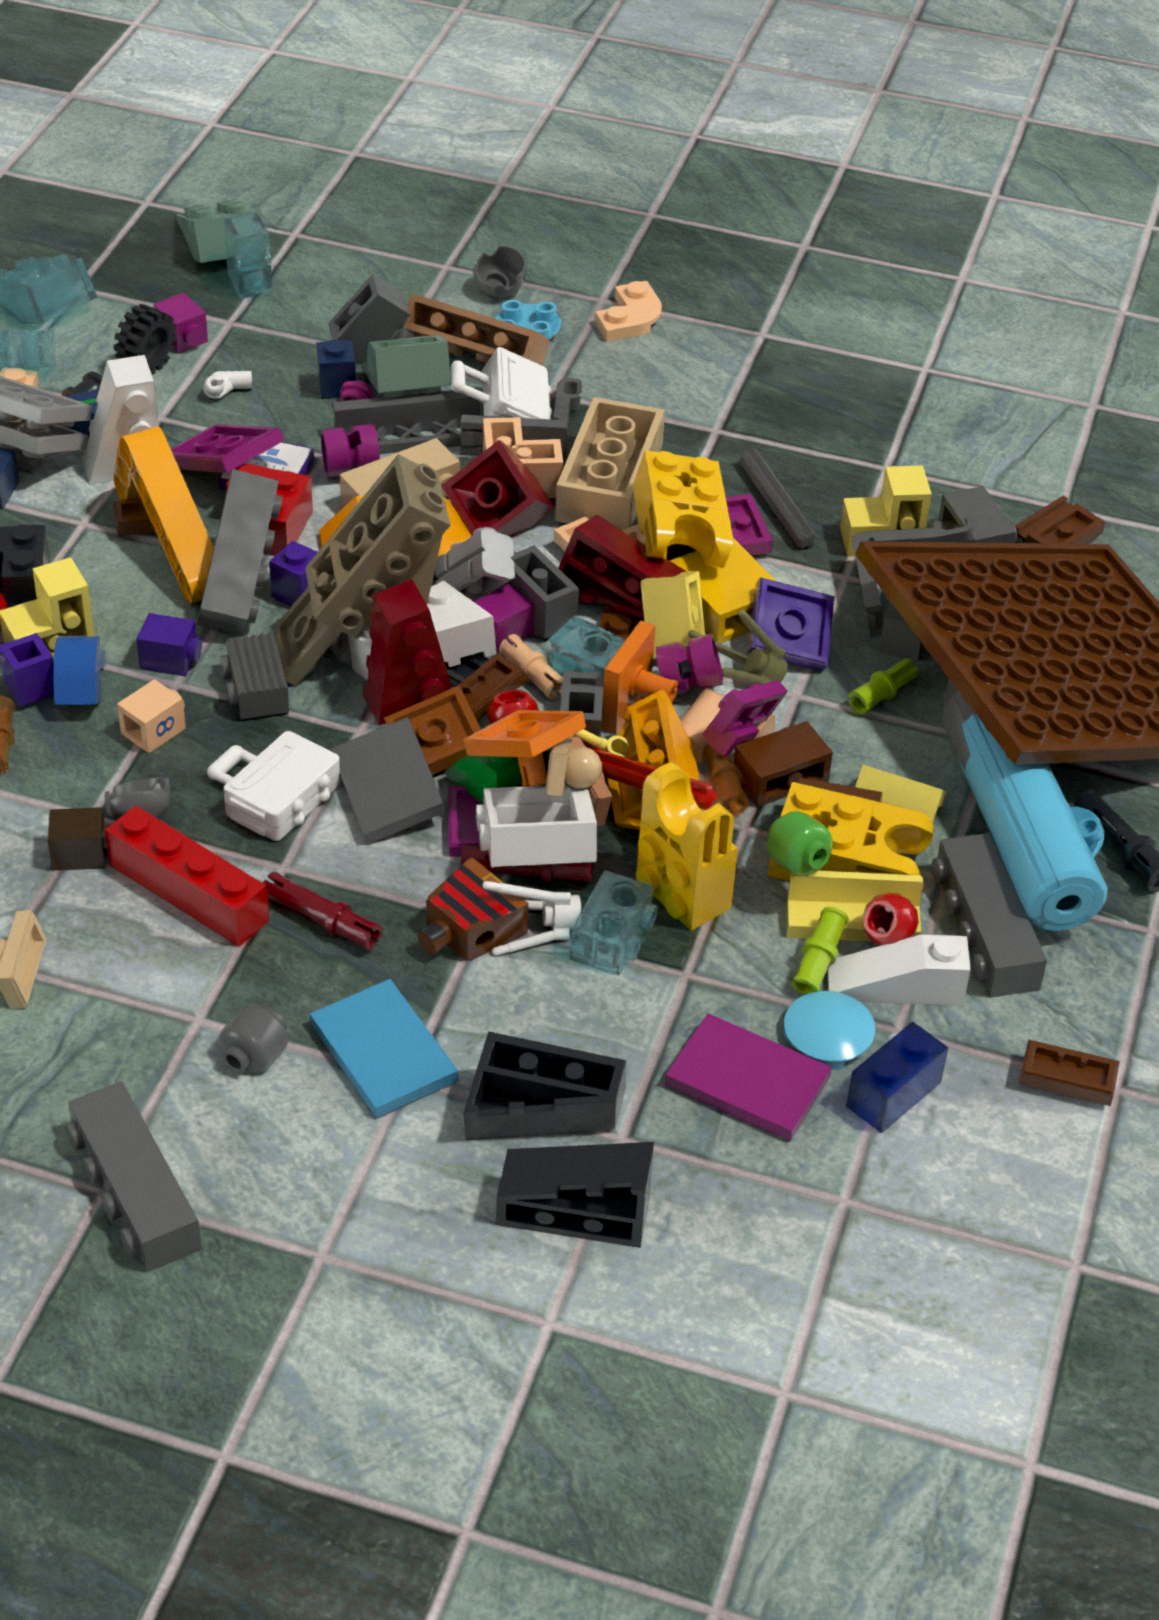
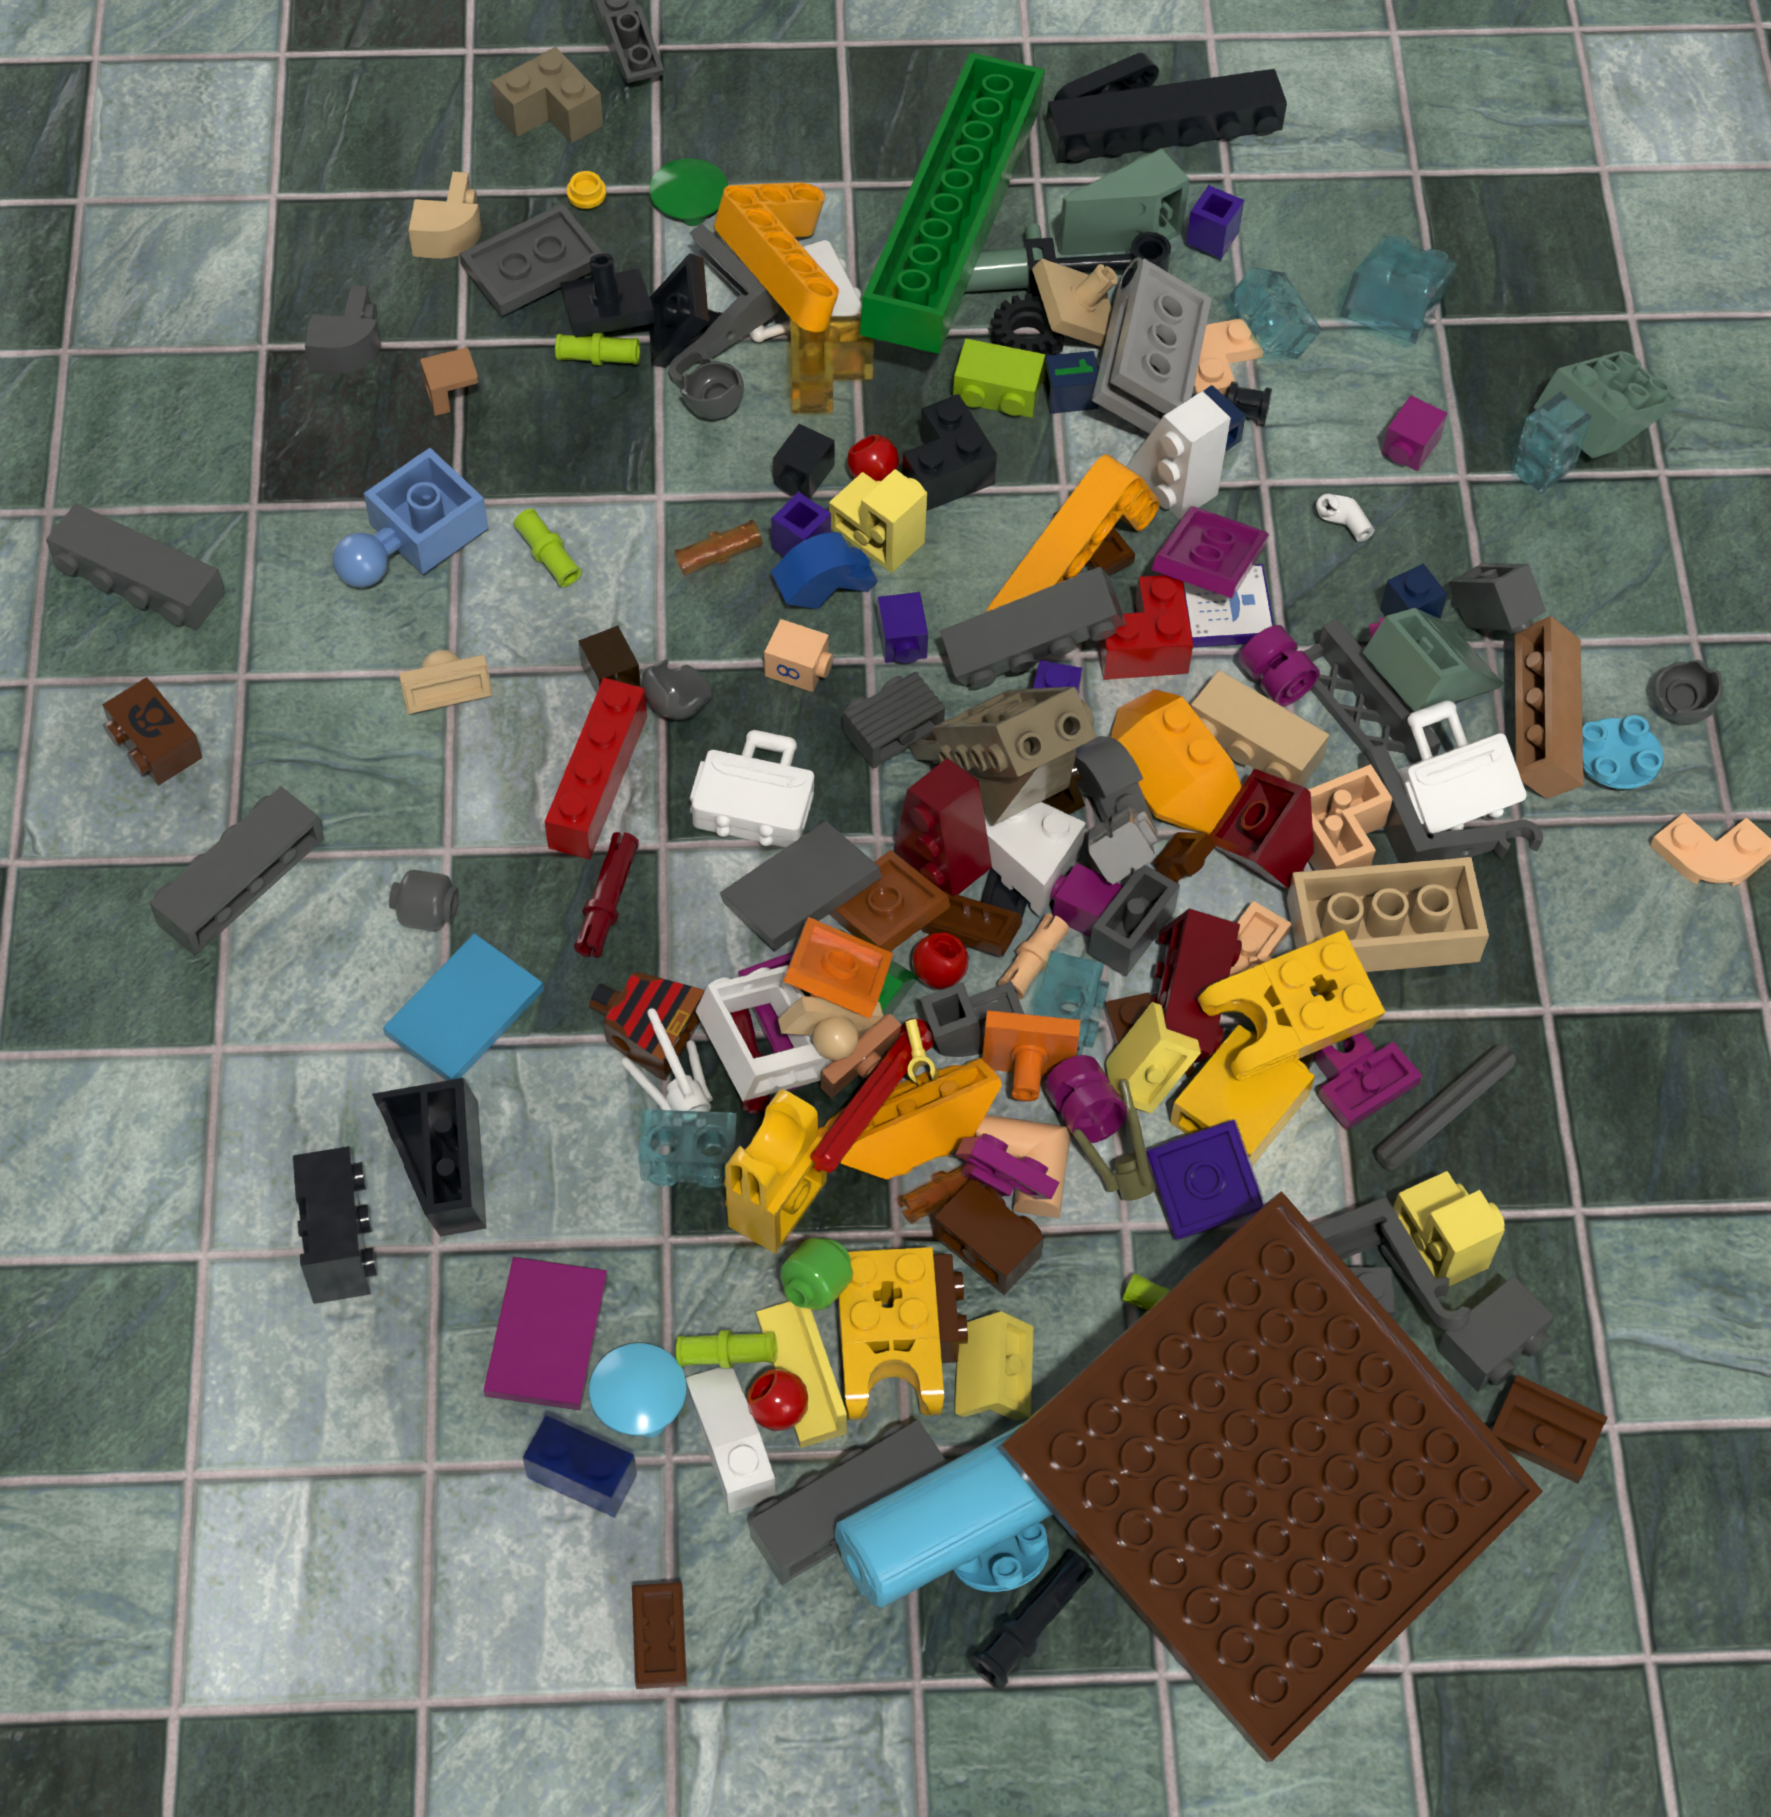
camera: 70 degrees right, 15 degrees up
(147, 334) = (1367, 408): black tyre -> none

